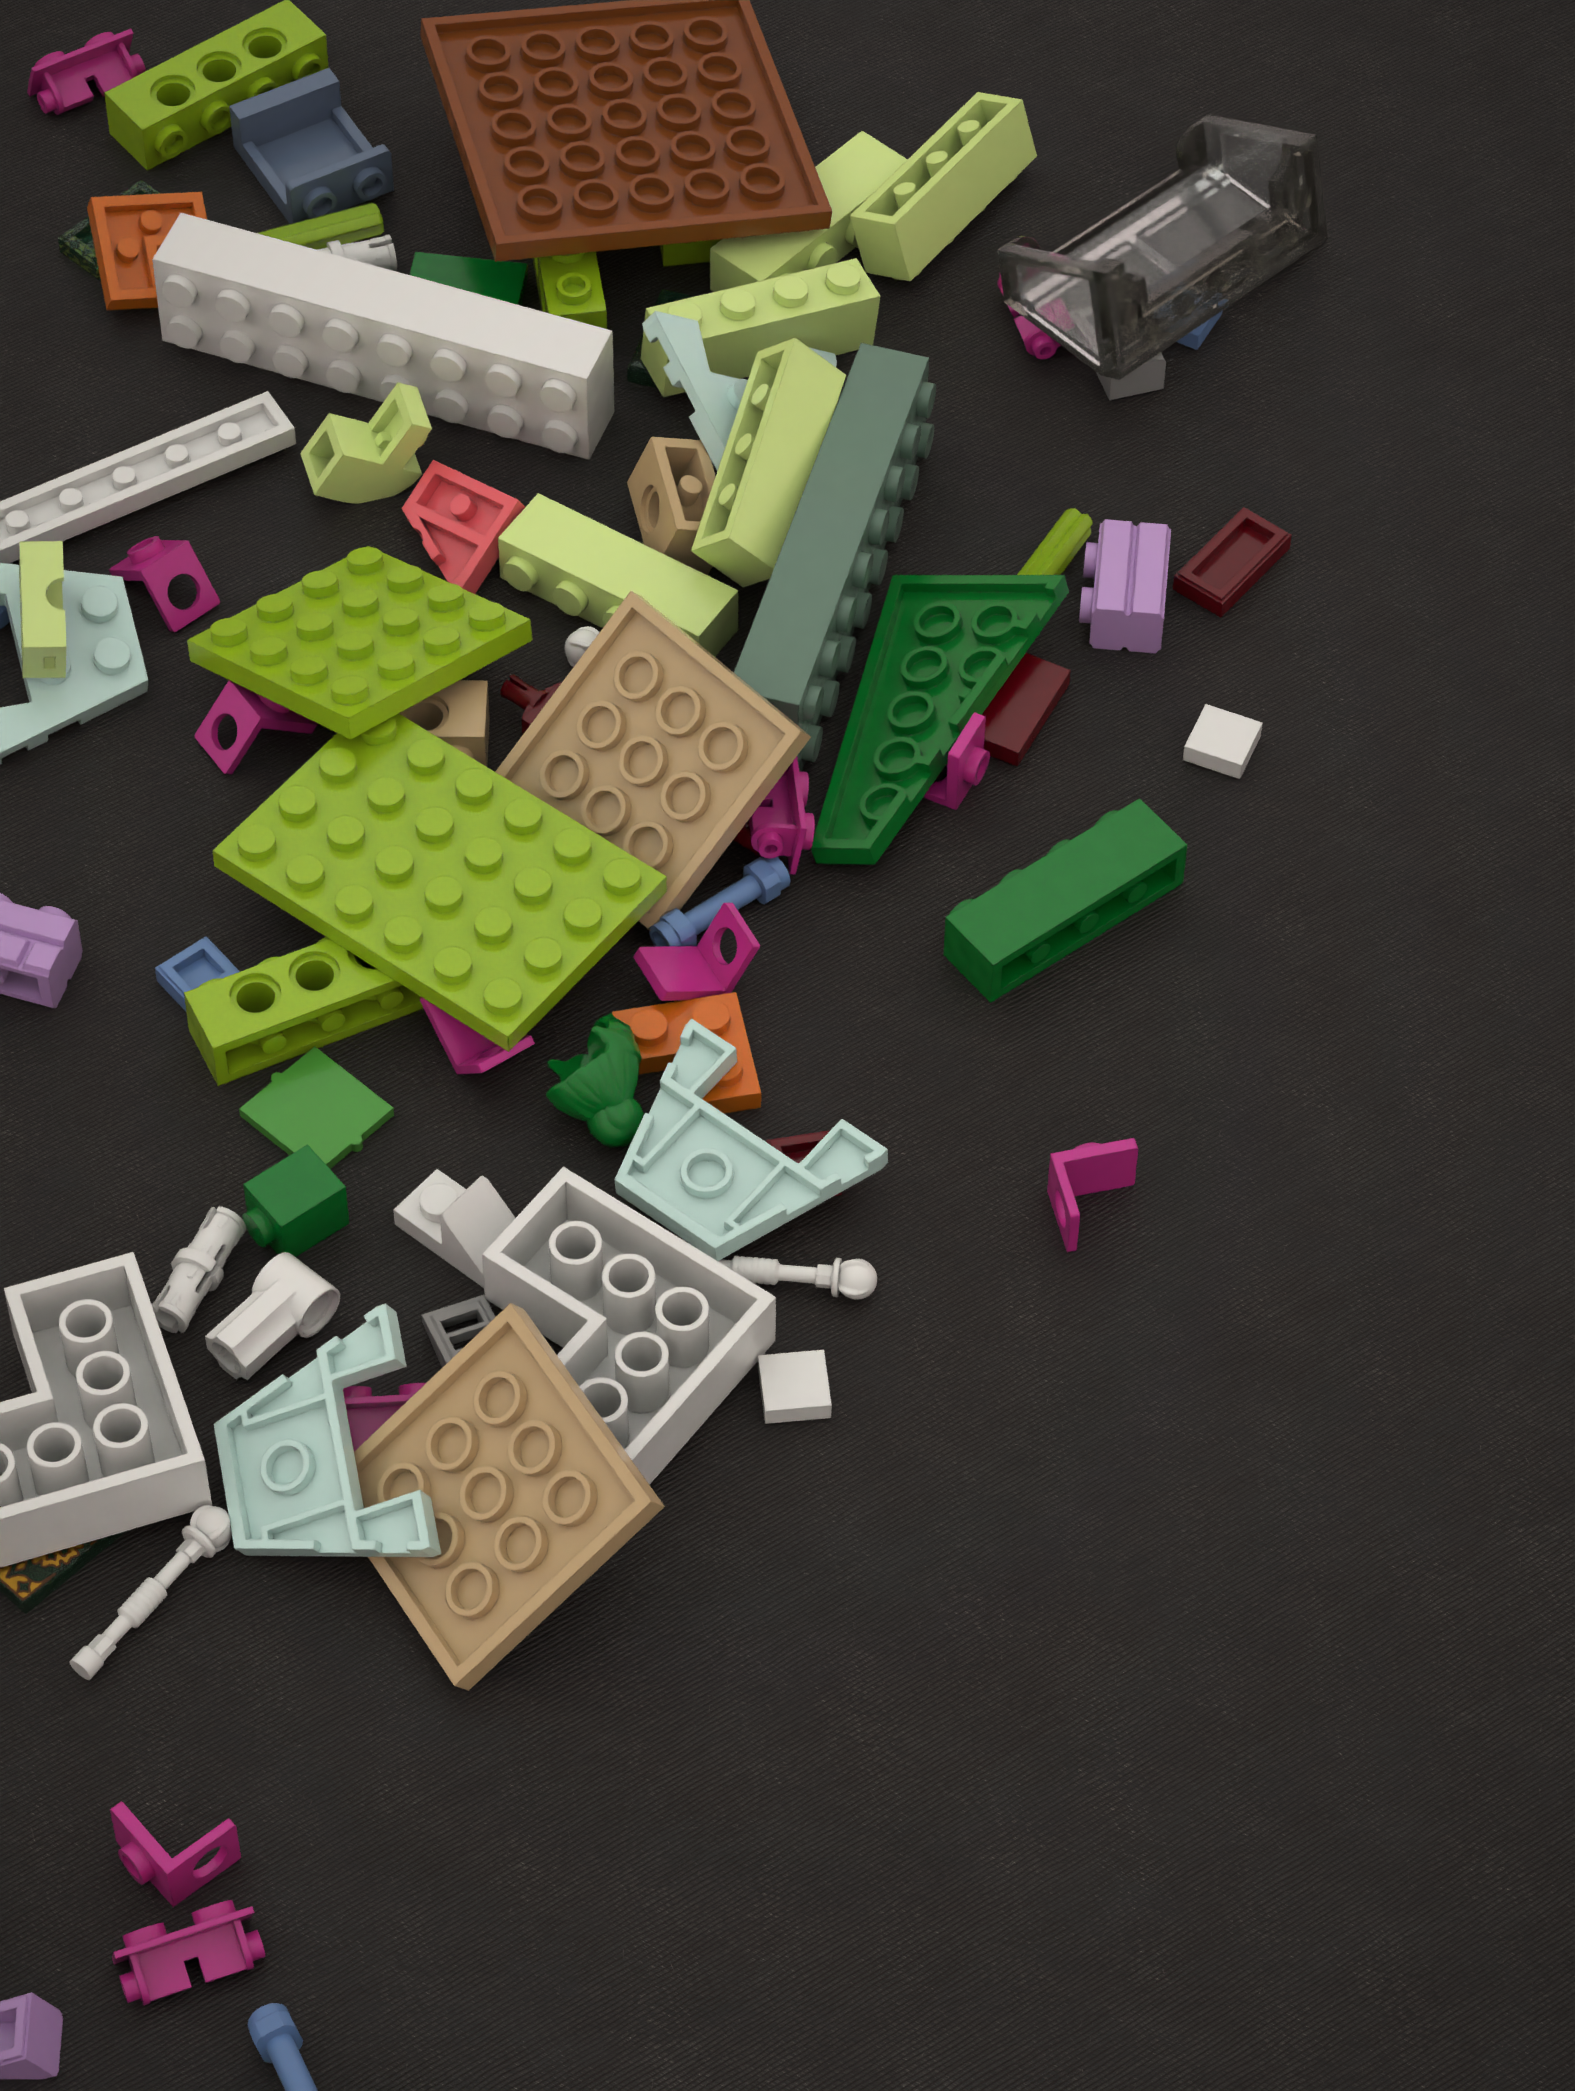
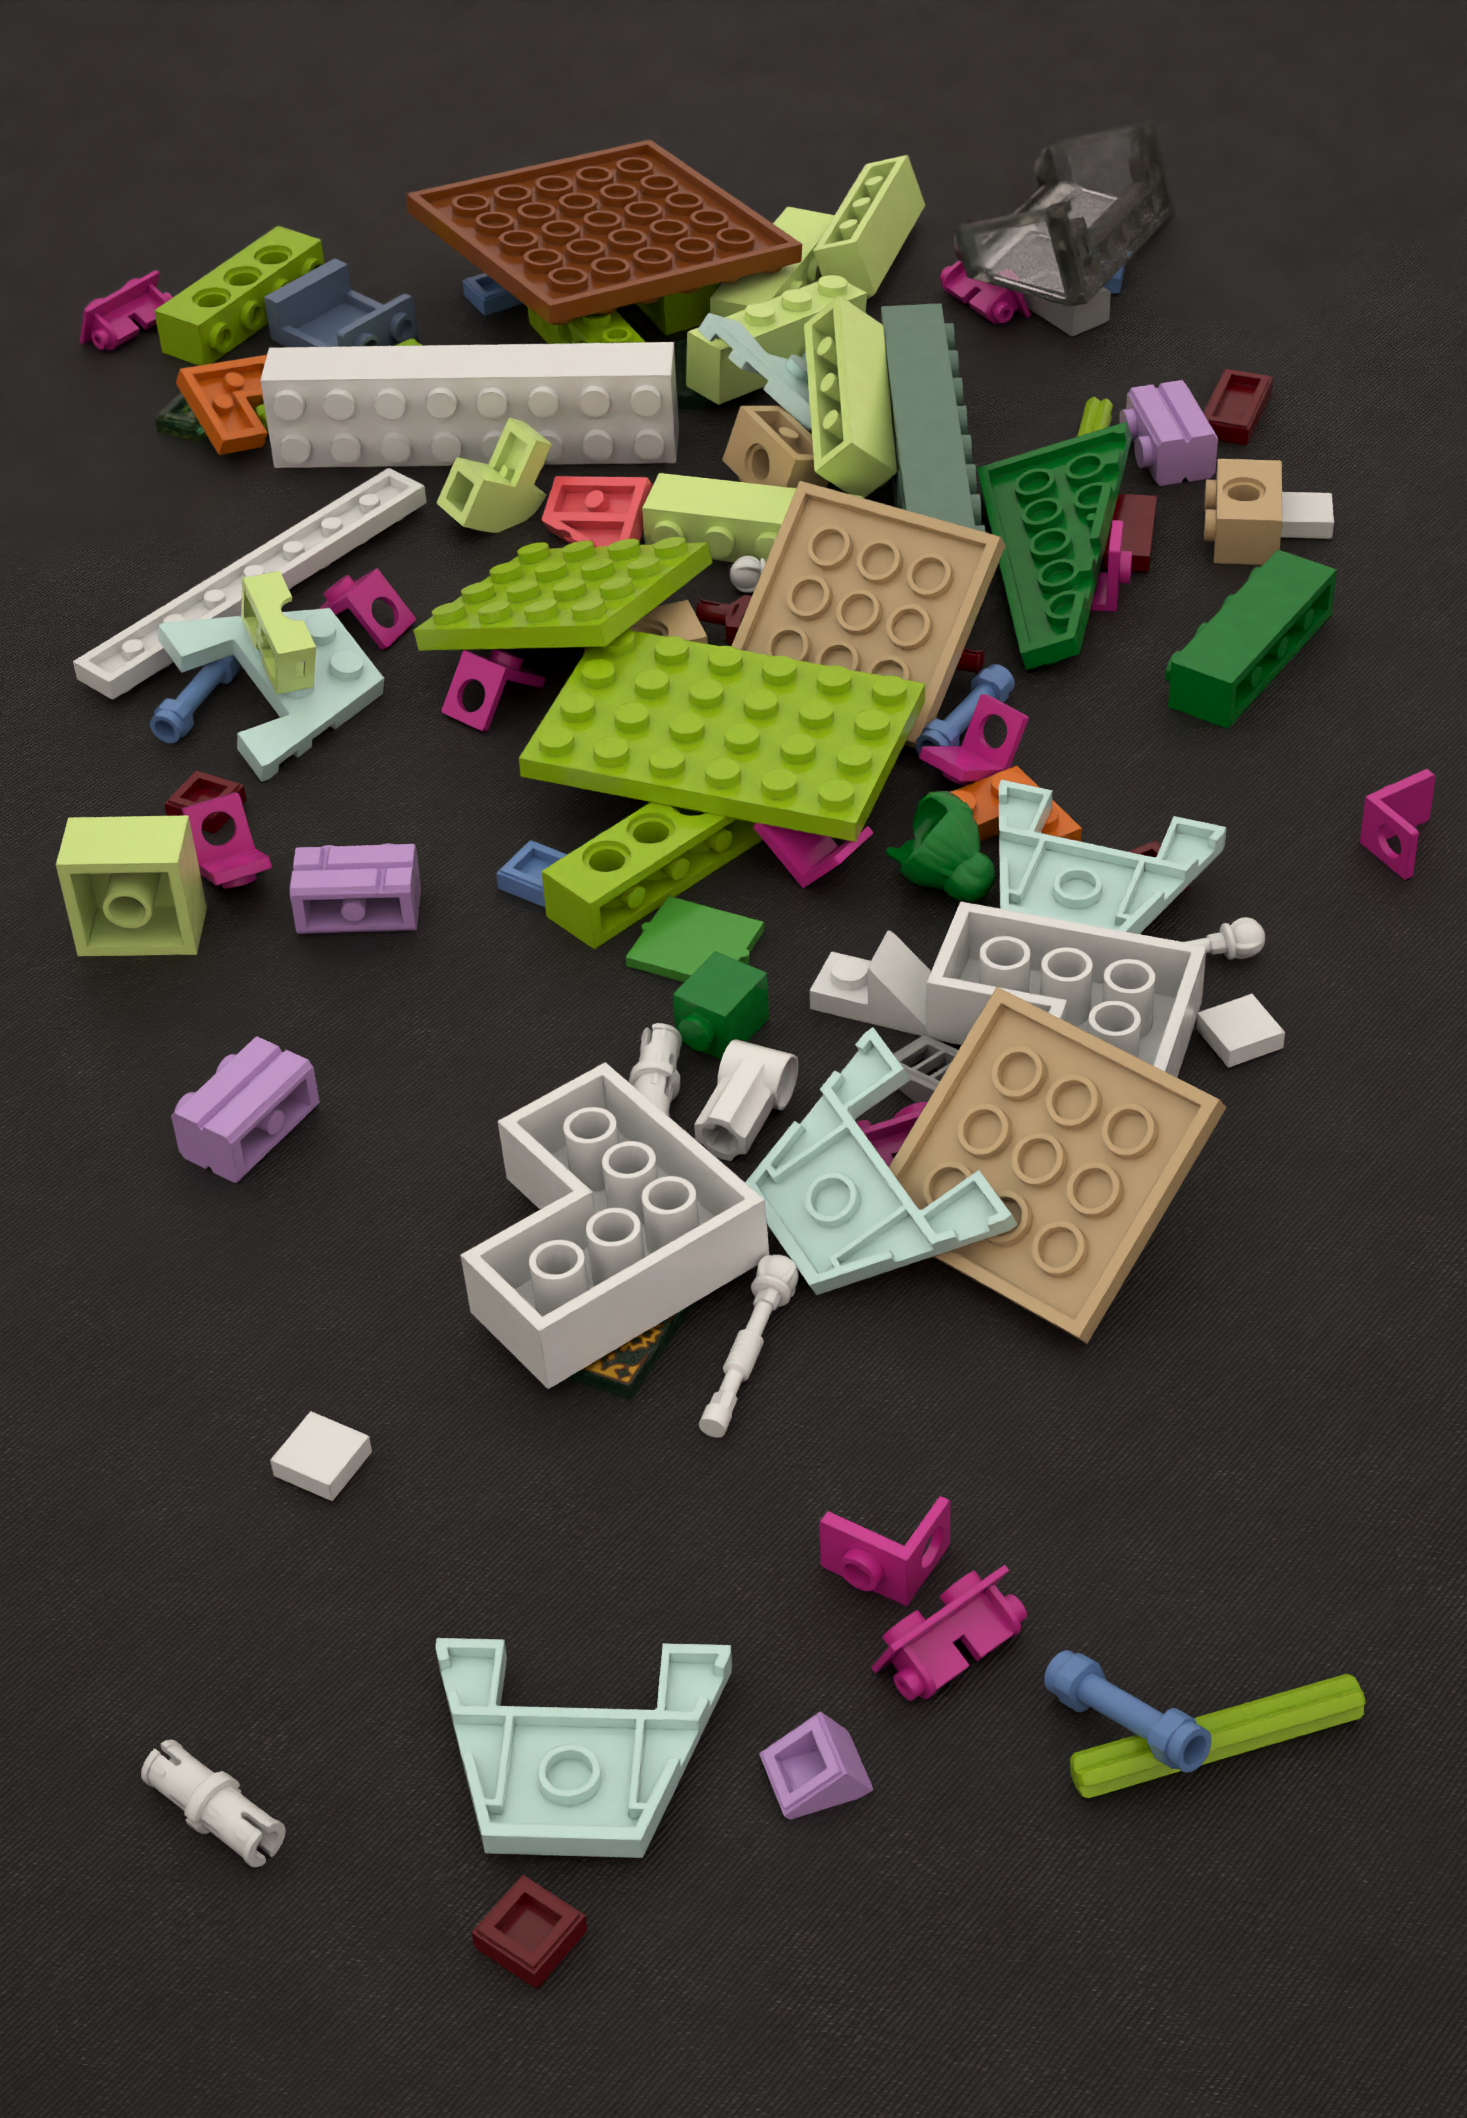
camera: 15 degrees left, 10 degrees down
(780, 821) = (996, 637): dark pink hinge -> none
(1149, 723) = (1244, 511): none -> tan brick

